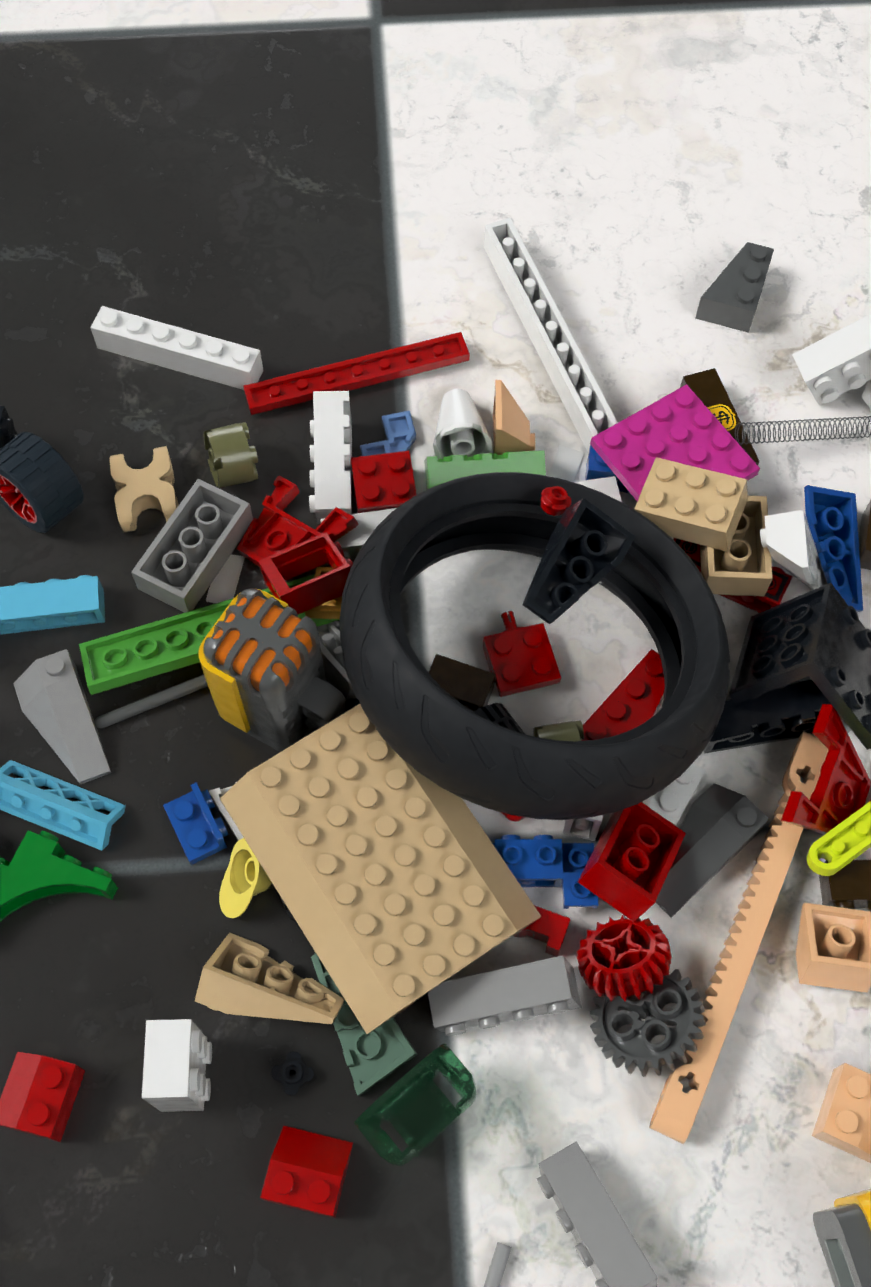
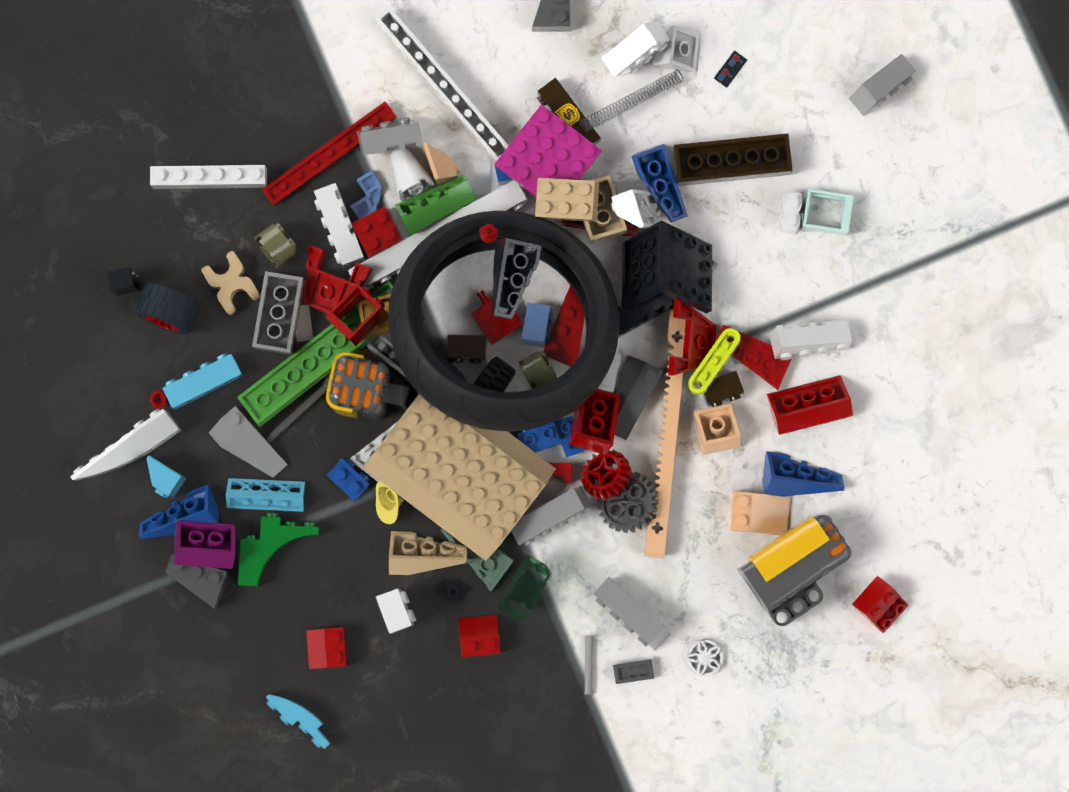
camera: 15 degrees left, 20 degrees up
(451, 368) = (389, 136): none -> light grey wedge
(579, 686) = (535, 325): none -> medium blue brick

